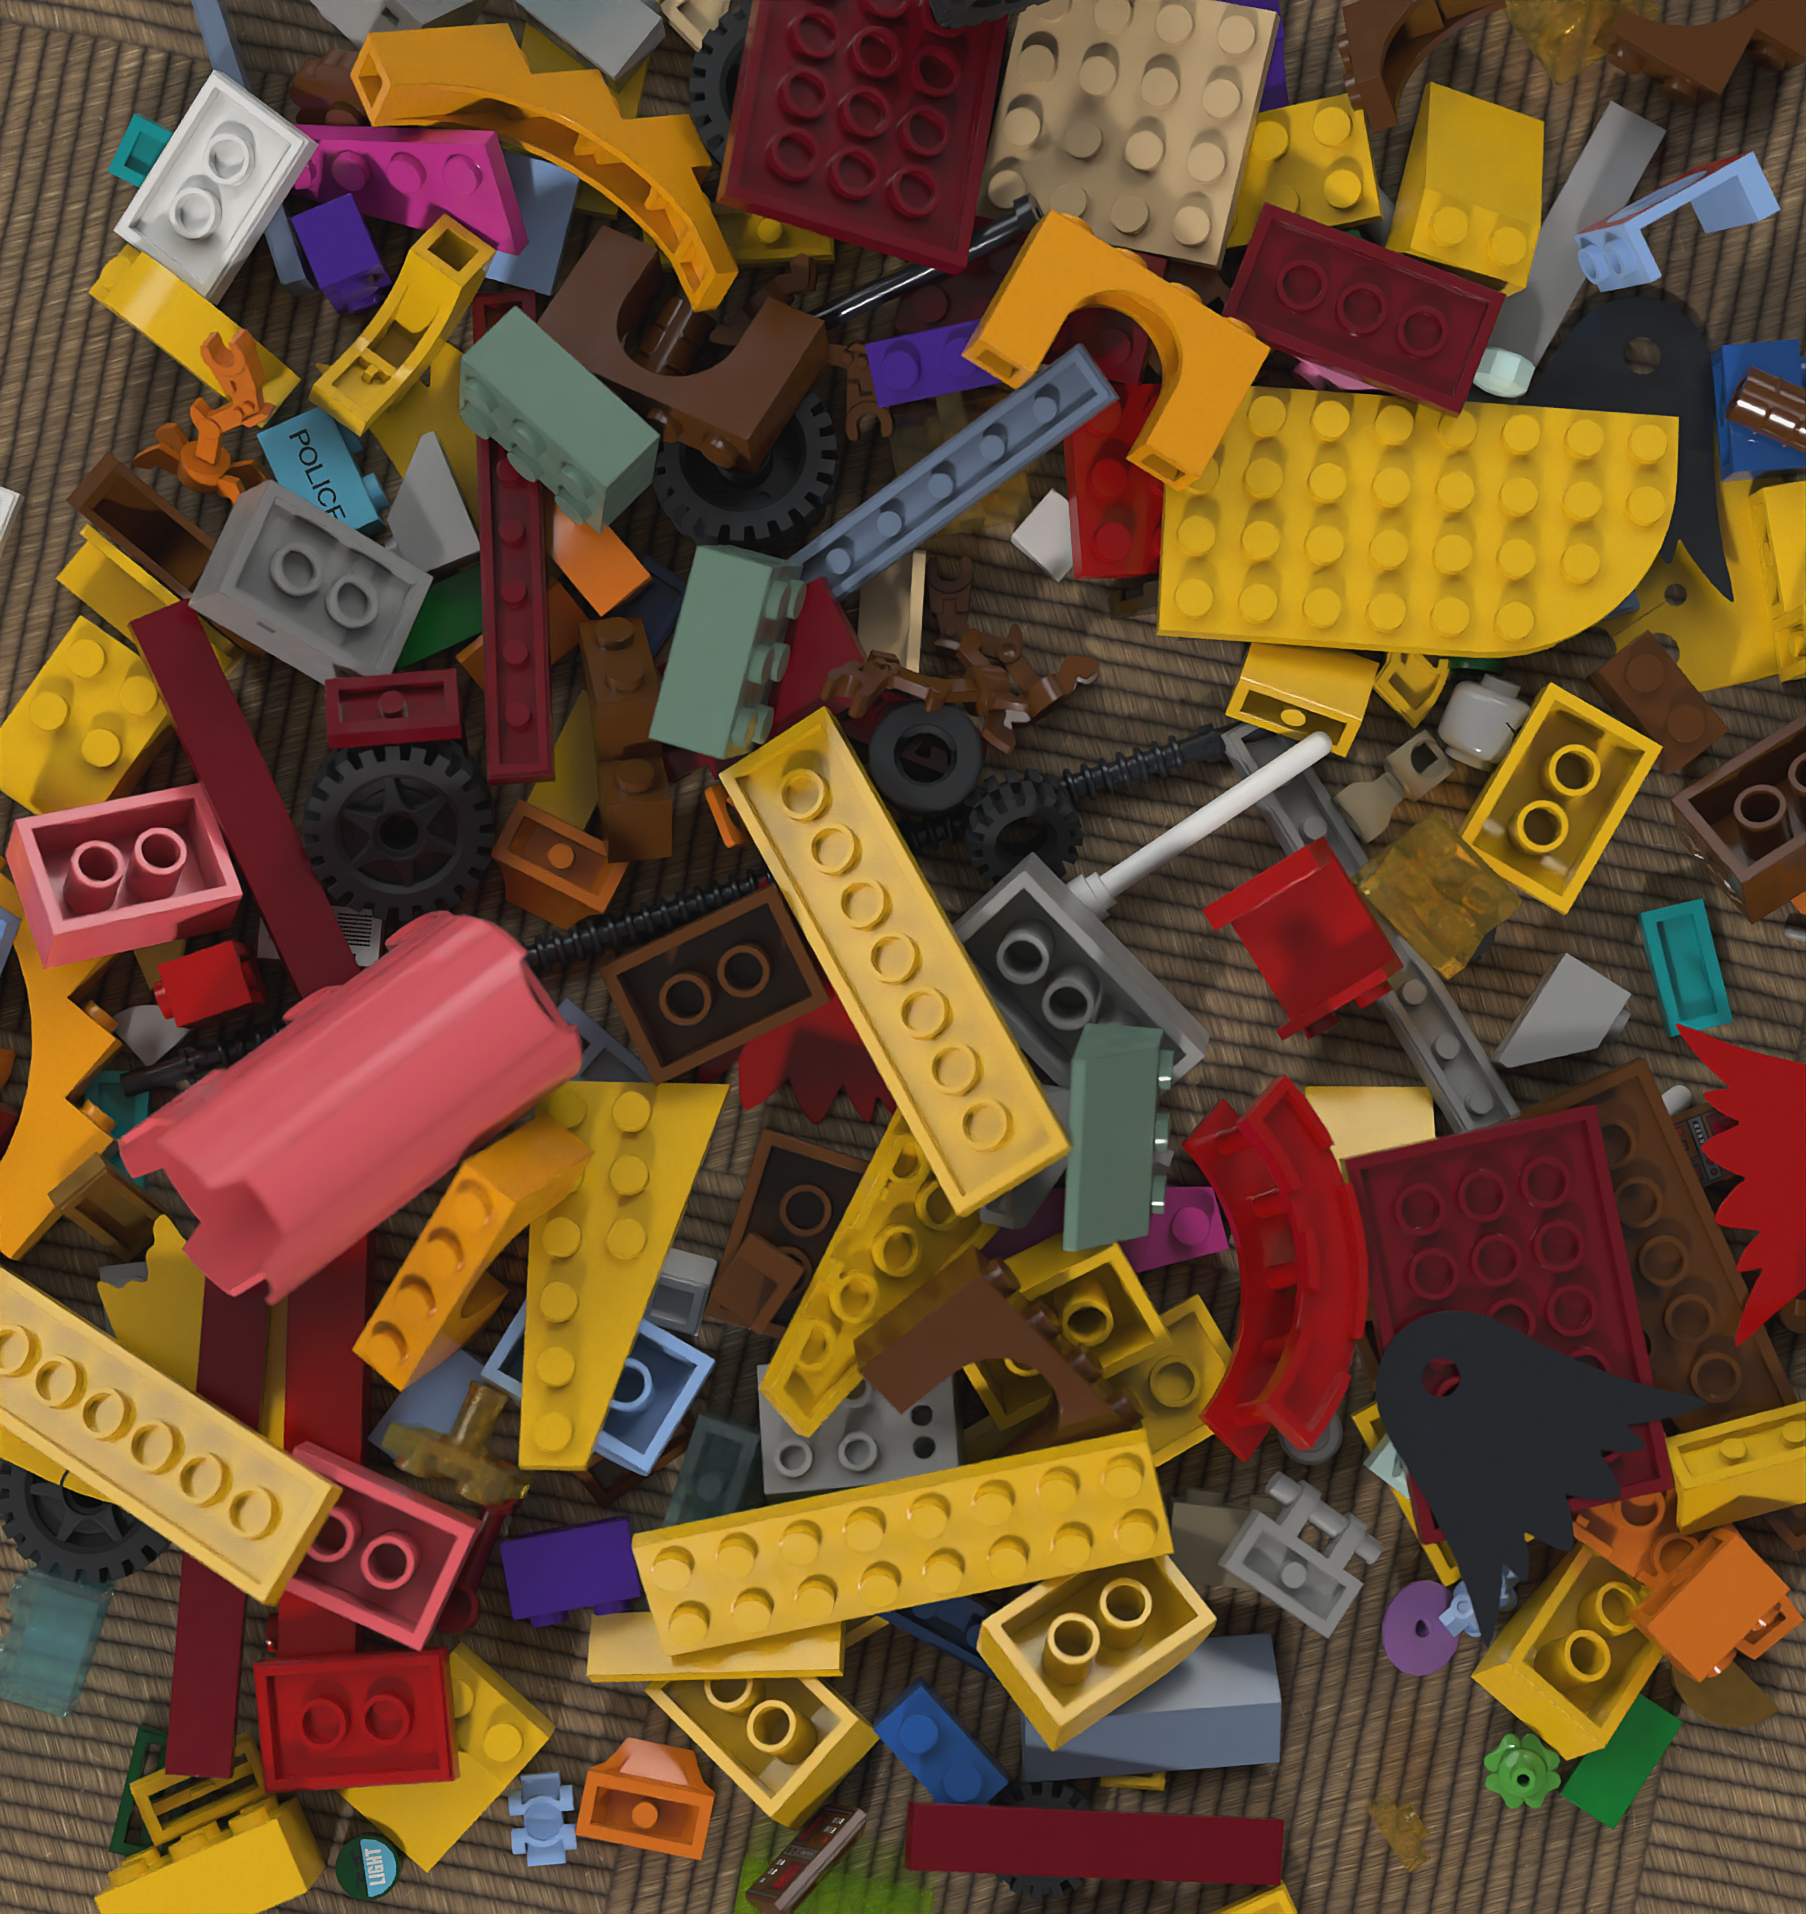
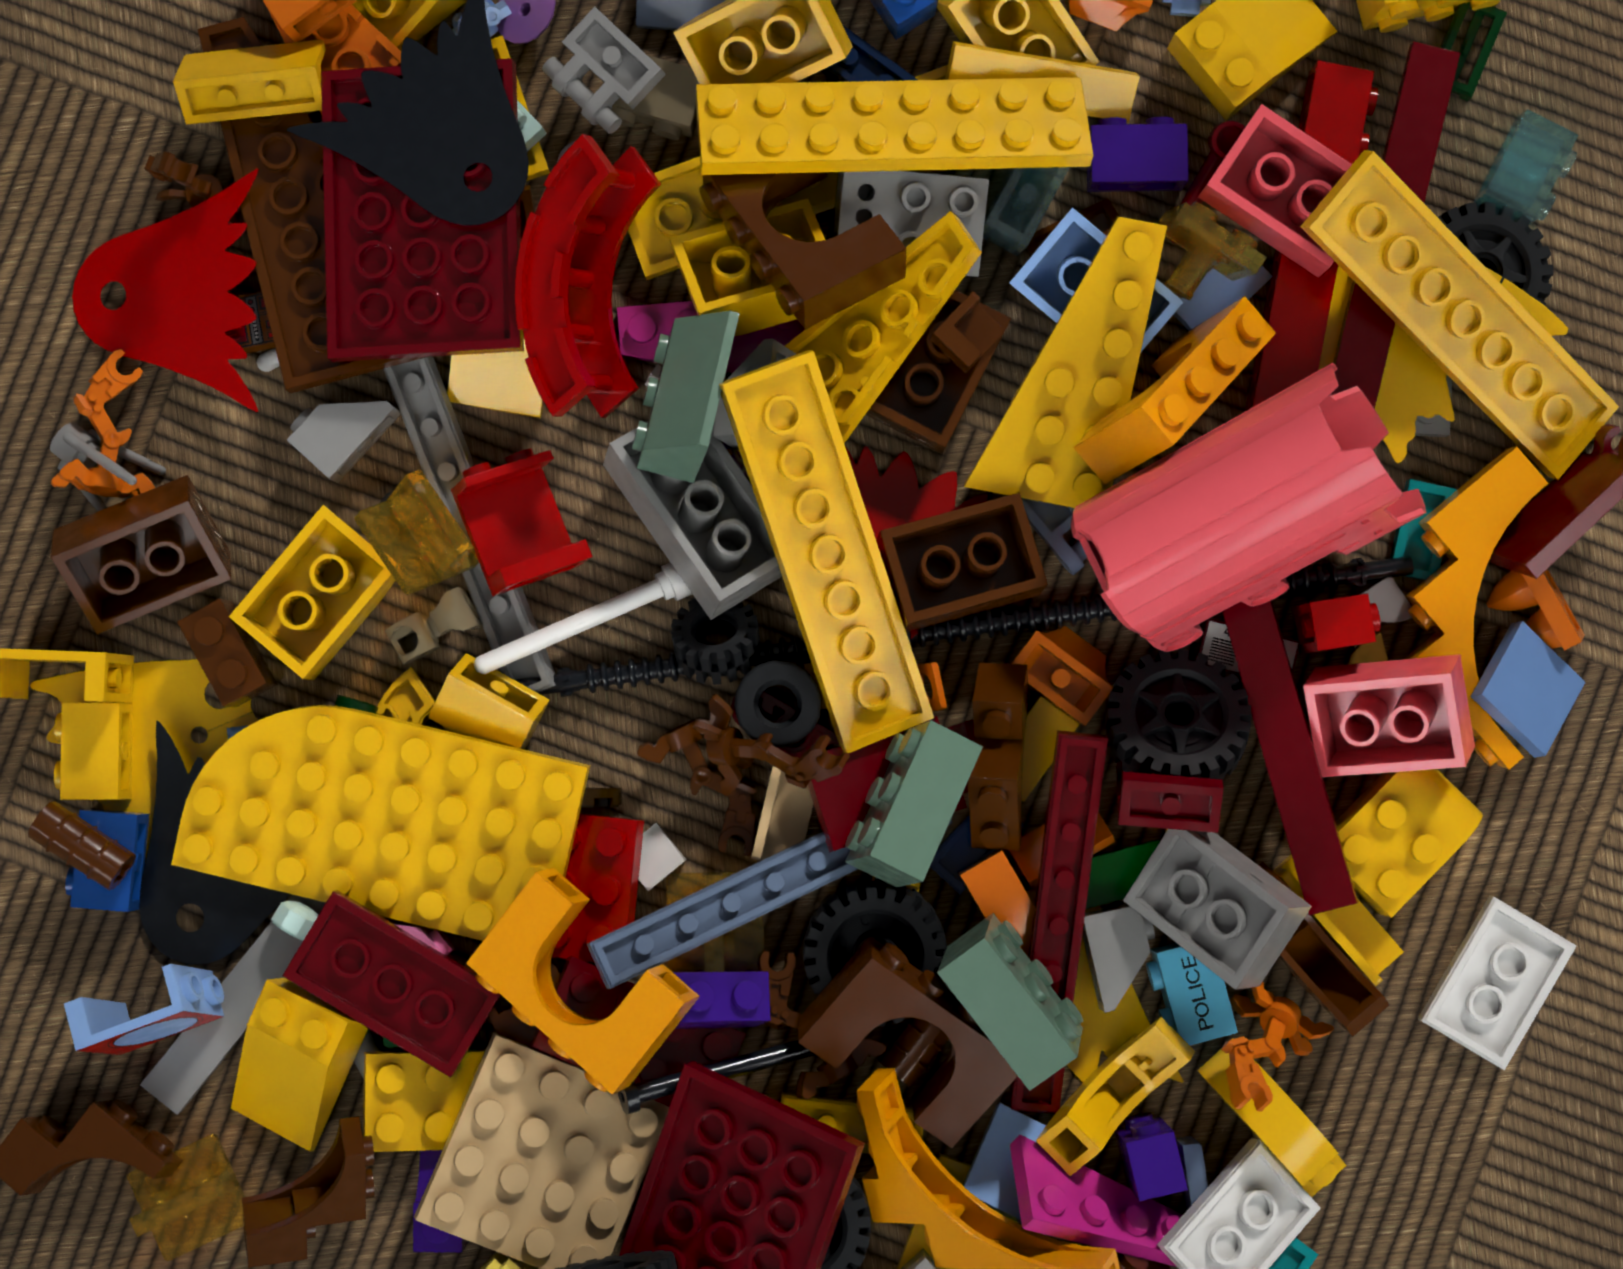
camera: 175 degrees left, 0 degrees up
(109, 1206) = (1436, 474): pearl gold tile -> none
(207, 1813) = (1431, 26): yellow tile -> none
(356, 1720) = (1314, 68): red tile -> none
(682, 1292) = (1022, 344): white slope -> none
(1482, 721) = (358, 662): light grey head -> none
(1684, 967) = (244, 456): teal tile -> none

